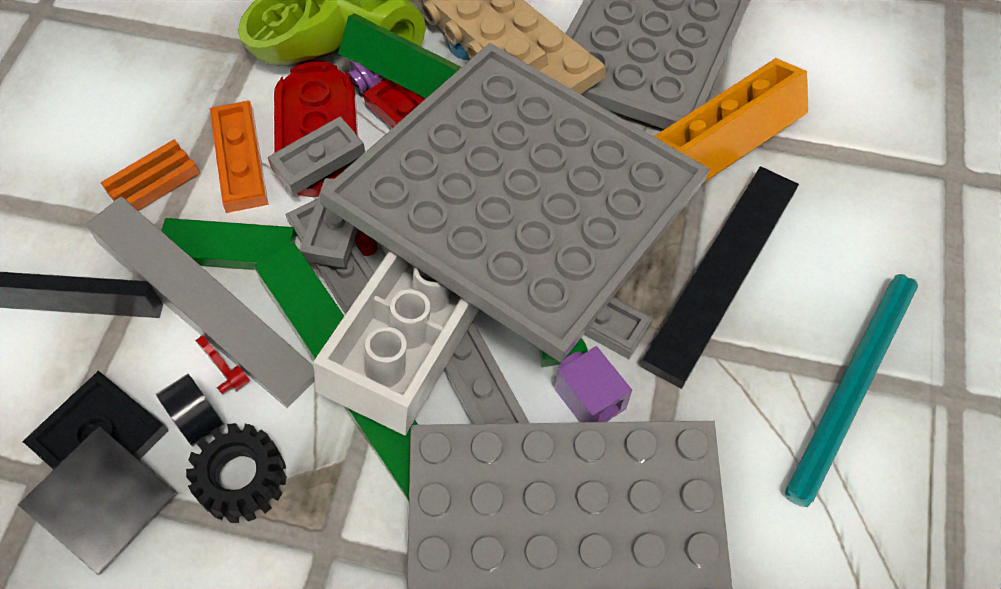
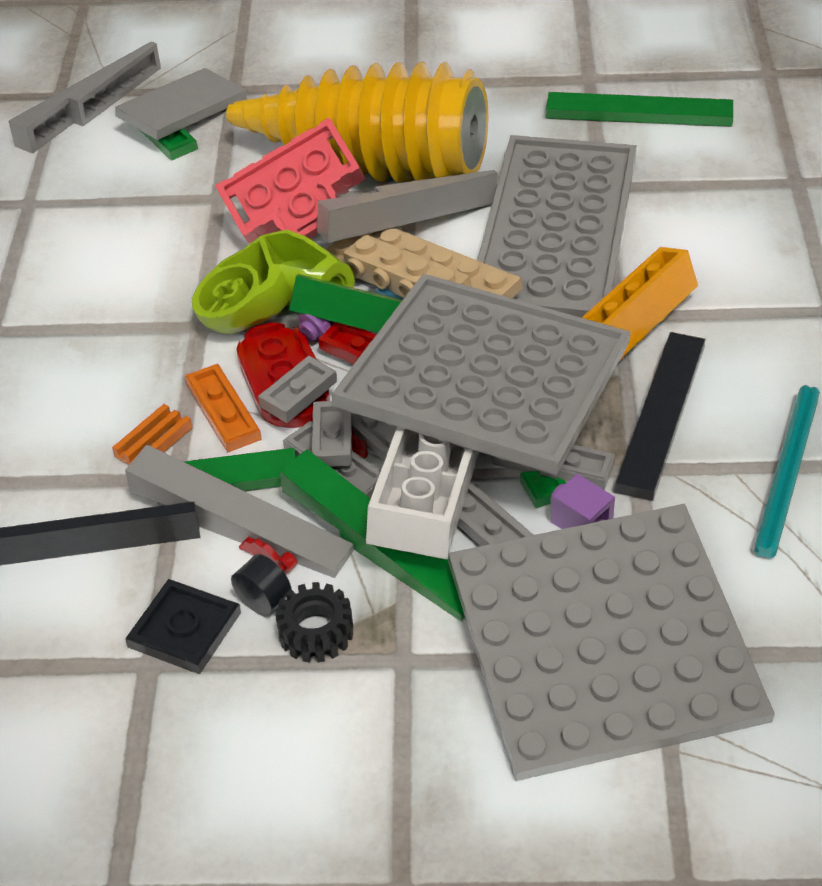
camera: 10 degrees left, 15 degrees down
(97, 500) = (209, 660): black tile -> none

